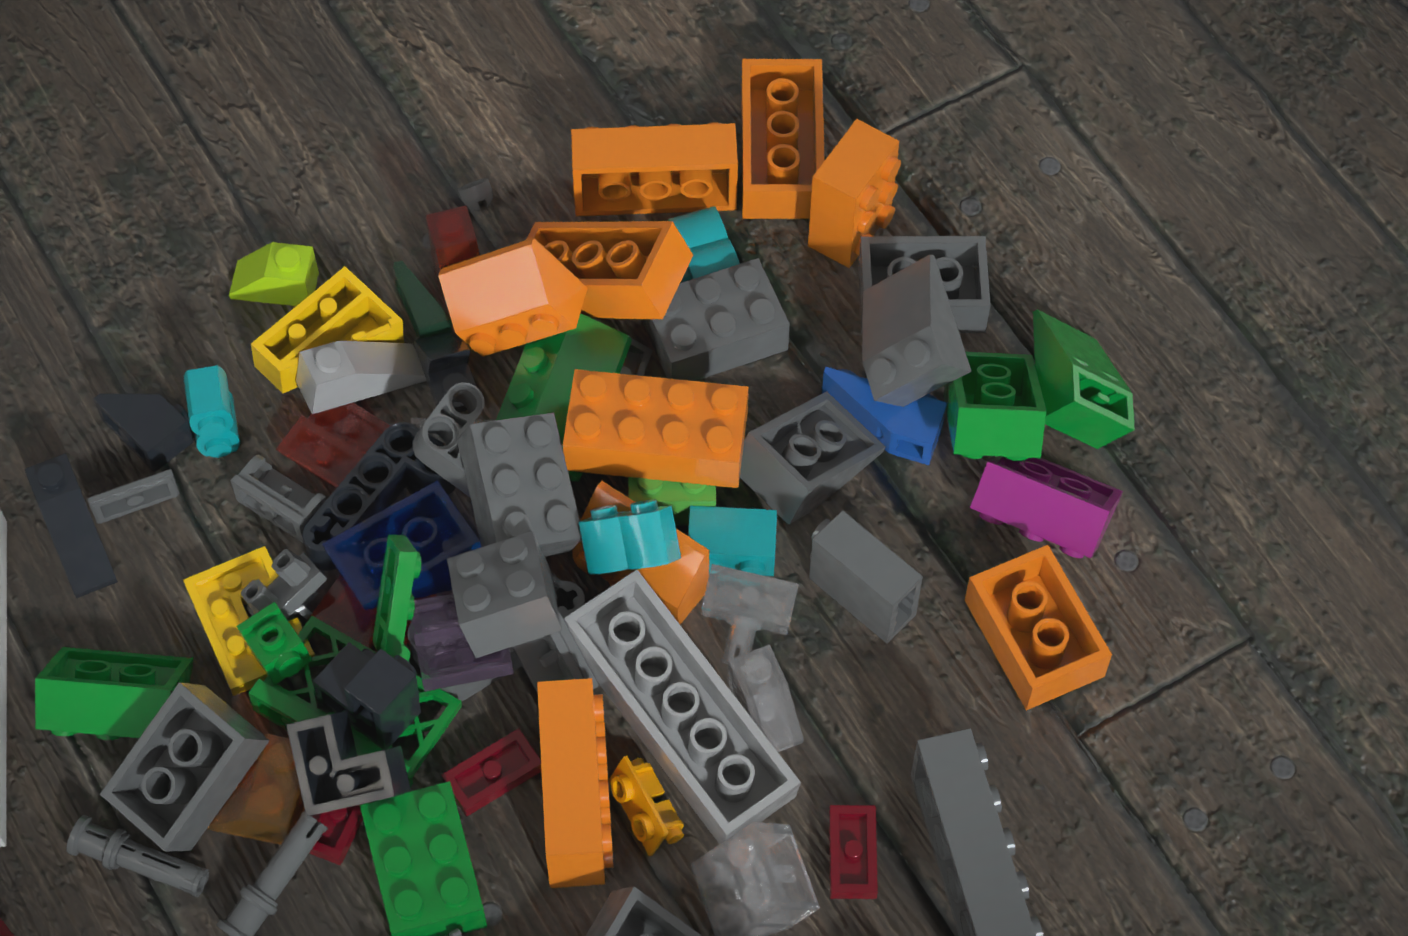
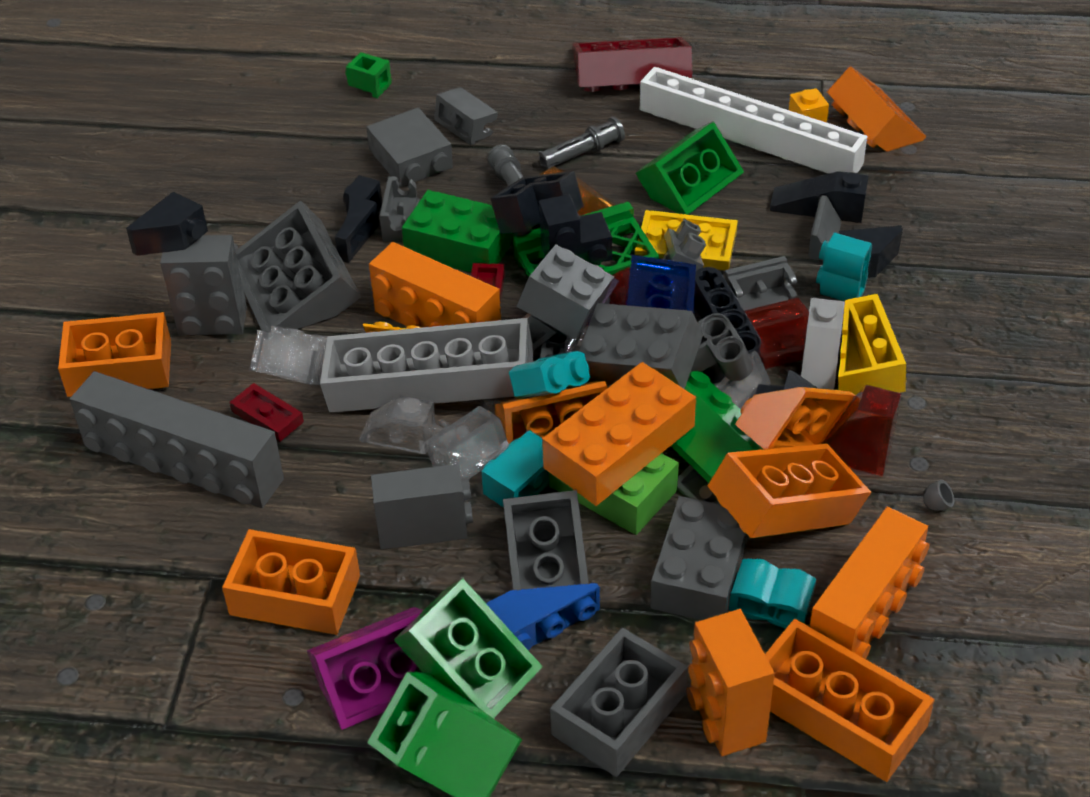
camera: 130 degrees right, 15 degrees down
(184, 767) = (606, 158): dark grey brick -> none
(274, 643) = (647, 221): green brick -> none
(276, 275) = (939, 360): lime slope -> none
(395, 598) = (620, 257): green plate -> none
(910, 335) = (554, 605): dark grey slope -> none

